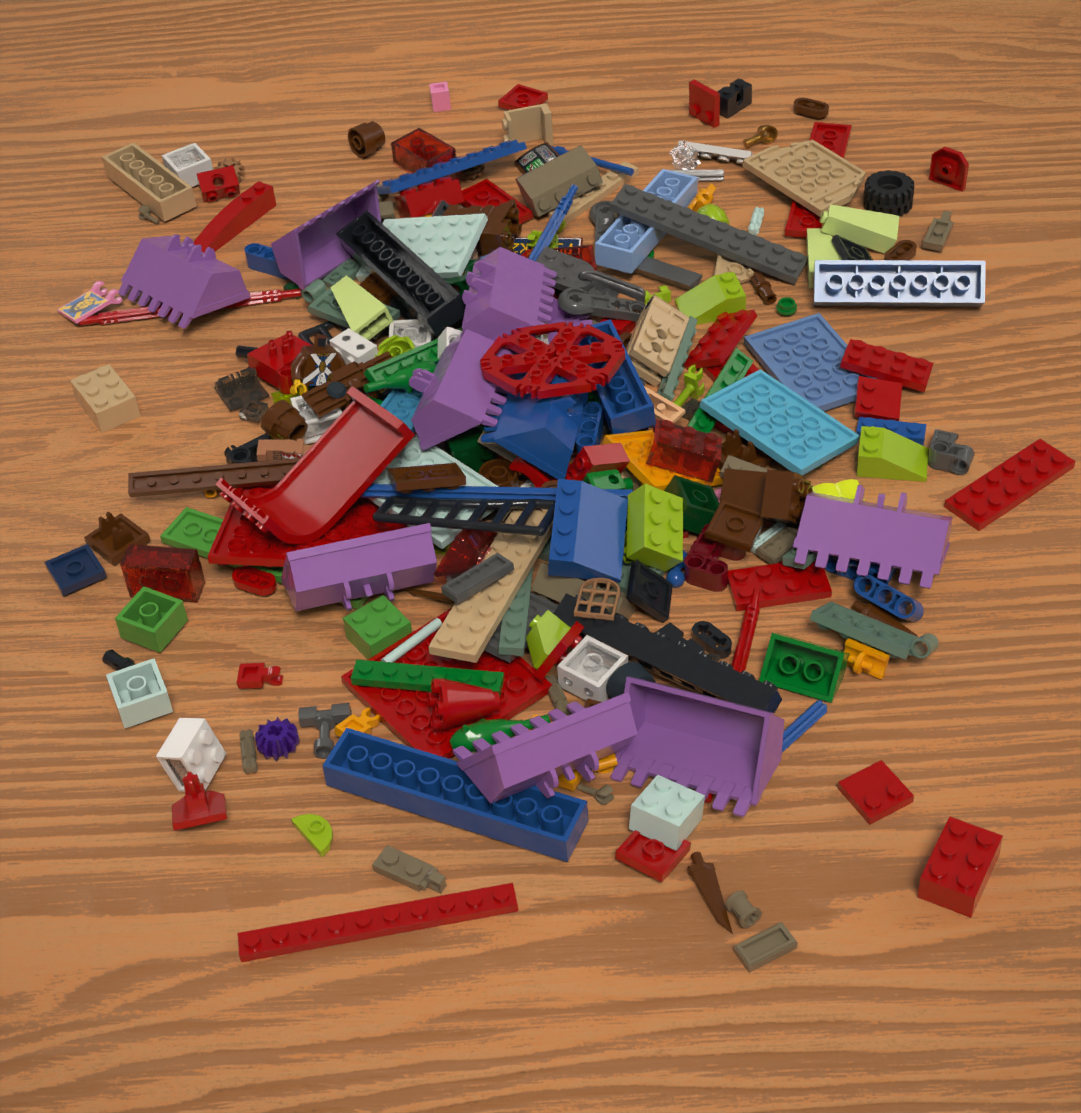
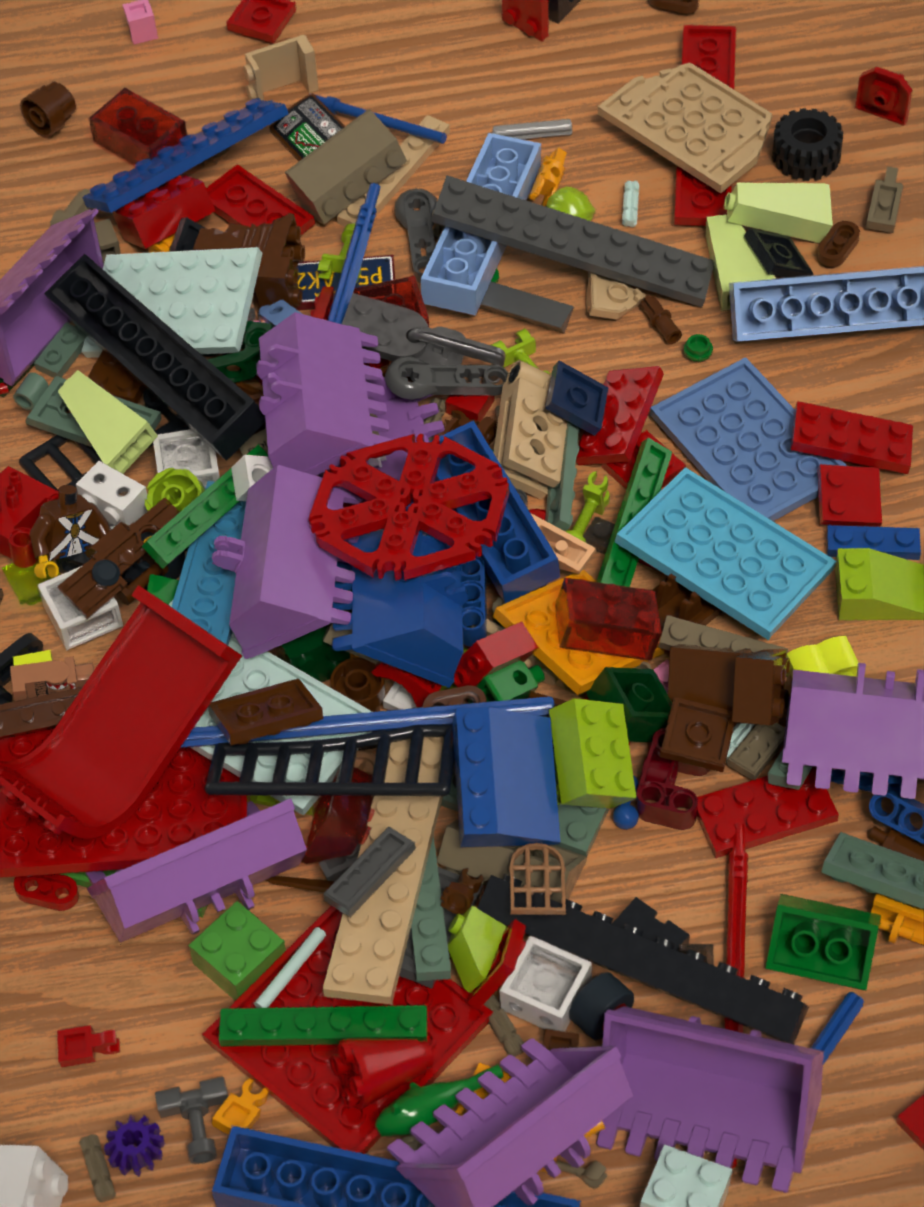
camera: 10 degrees left, 10 degrees up
(284, 422) = (40, 632): reddish brown piece -> none
(401, 377) = (201, 544): green piece -> none
(540, 604) = (459, 895): none -> reddish brown piece
(649, 591) = (598, 847): black tile -> none
(684, 157) = (513, 103): clear brick -> none
(690, 322) = (576, 398): none -> dark blue plate
(713, 297) = (598, 344): lime slope -> none
(714, 638) = (694, 908): black beam -> none
(723, 153) = (543, 88): white plate -> none
(767, 138) = (619, 51): pearl gold bar -> none

